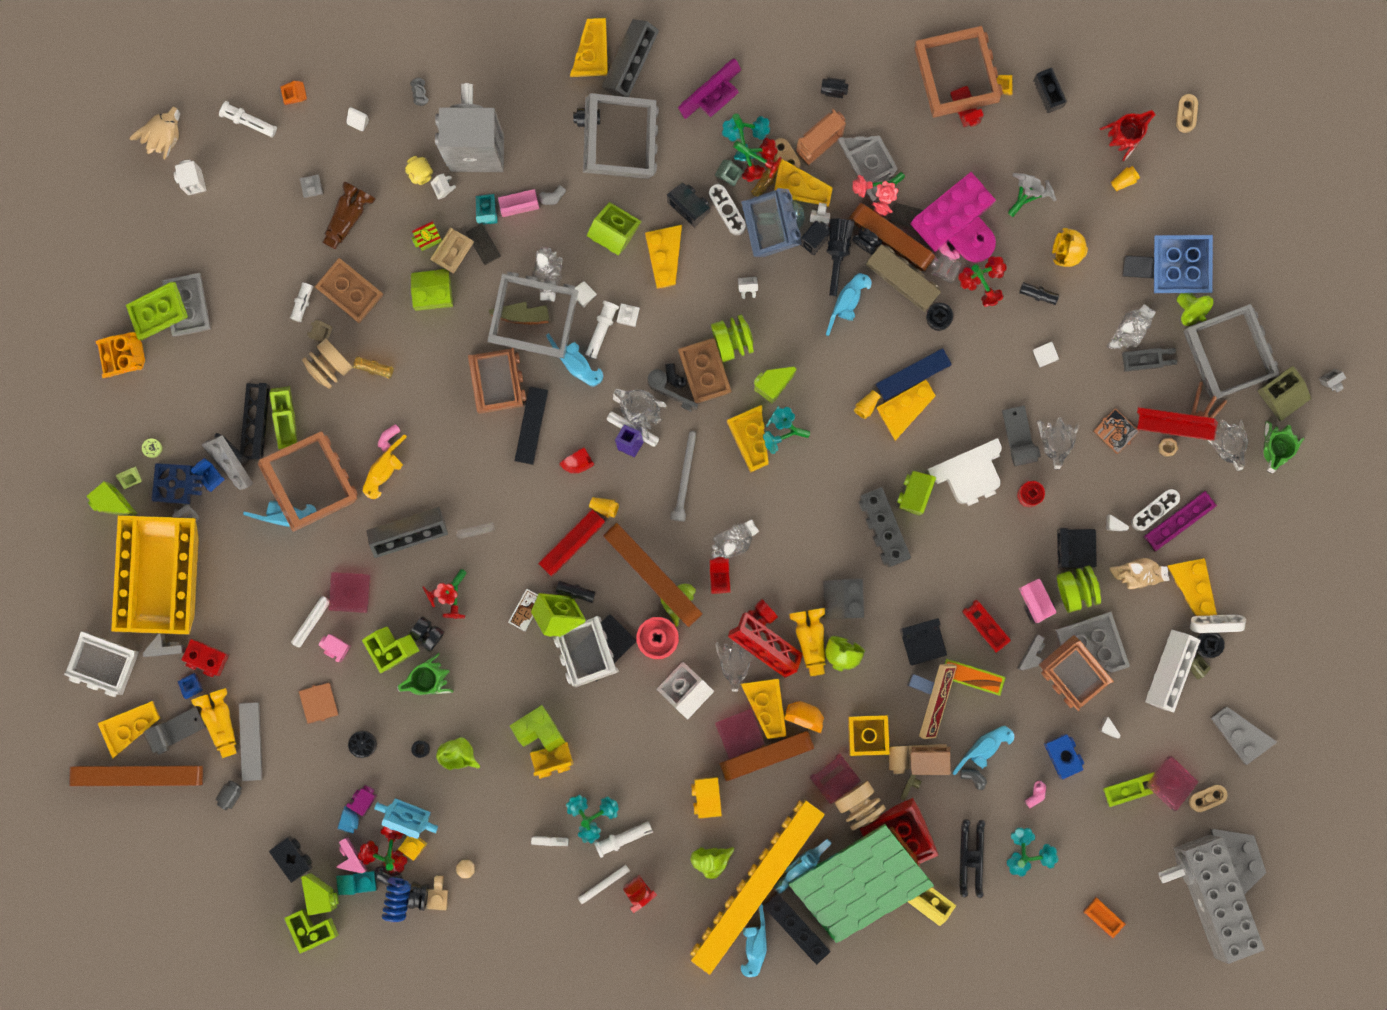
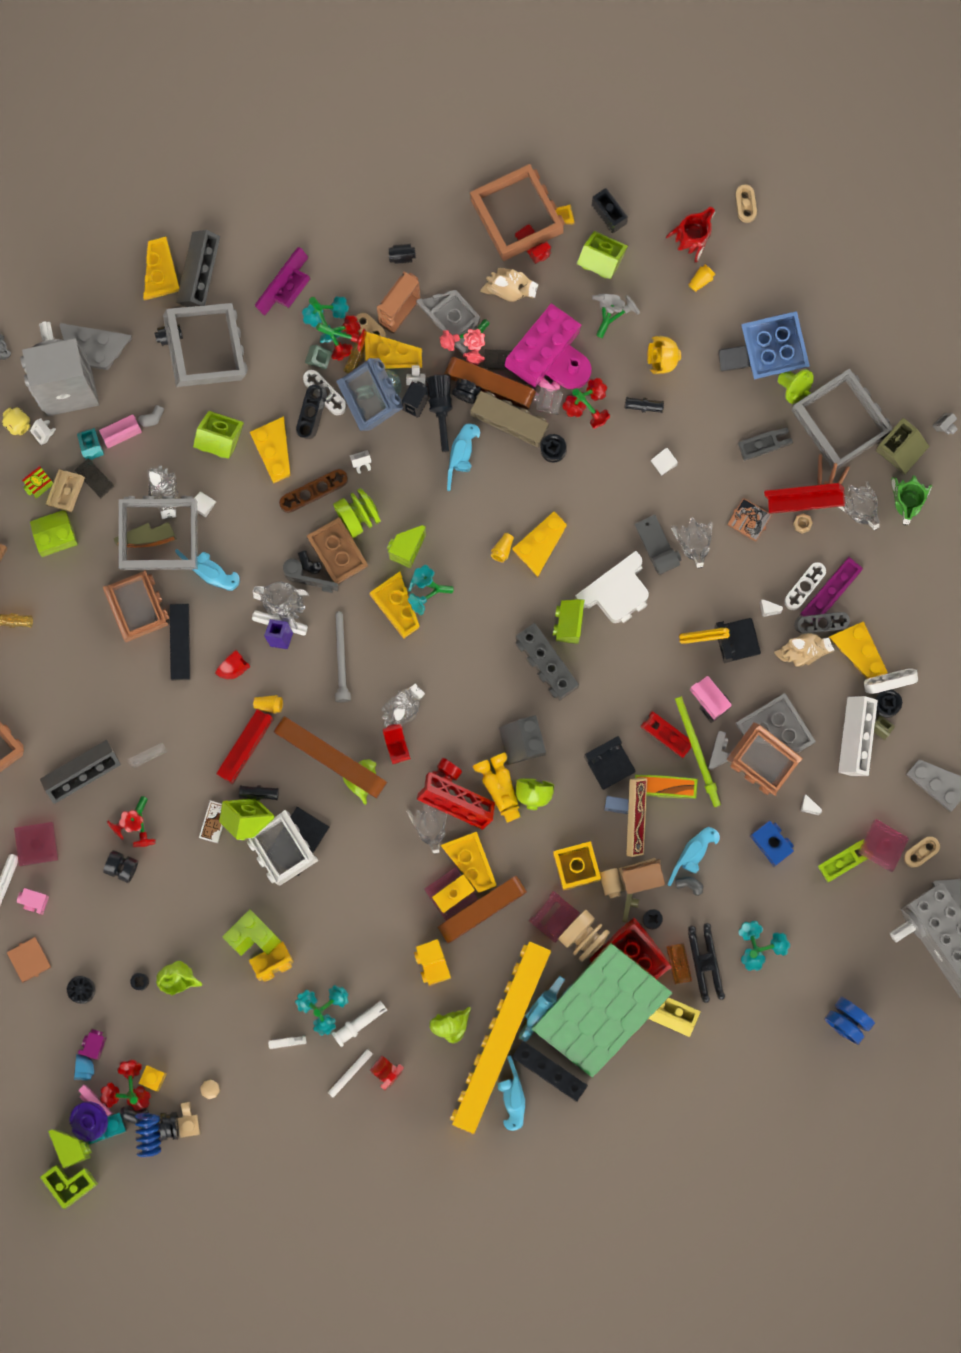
camera: 15 degrees left, 5 degrees down
(291, 869) = (23, 1116): black brick -> none
(342, 874) = (88, 1121): none -> dark purple tile
(382, 470) = (43, 718): yellow animal -> none
(386, 435) = (39, 684): bright pink arm -> none
(387, 651) = (87, 892): lime brick -> none
(406, 818) = (140, 1051): medium azure plate -> none
(426, 679) = (130, 911): bright green piece -> none
(514, 113) = (97, 345): none -> light grey wing
(604, 321) = (228, 524): white pin -> none
(628, 315) = (250, 514): white tile -> none
(661, 627) = (341, 810): coral wheel -> none
(685, 690) = (387, 863): white slope -> none
(688, 204) = (284, 395): black slope -> none
(695, 308) = (312, 488): none -> reddish brown beam
(718, 221) = (304, 418): none -> black beam
(742, 734) = (453, 893): none -> yellow plate
(804, 715) = (510, 861): light orange slope -> none
(913, 374) = (541, 509): dark blue tile -> none
(927, 803) = (650, 919): none -> black wheel
(931, 141) = (506, 285): none -> tan piece
(946, 852) = (679, 963): none -> clear orange plate
(1016, 686) = (710, 787): none -> lime bar
(1030, 494) = (680, 597): red wheel -> none
(1032, 133) = (602, 255): none -> lime slope
(1038, 794) = (756, 887): bright pink arm -> none
(1047, 538) = (705, 635): none -> yellow axle
(1083, 587) = (745, 679): lime wheel -> none
(1098, 948) = (849, 1021): none -> blue wheel
(1104, 917) = (844, 988): orange tile -> none
(1132, 328) = (740, 417): clear piece -> none
(1156, 545) = (835, 626): none -> dark grey beam

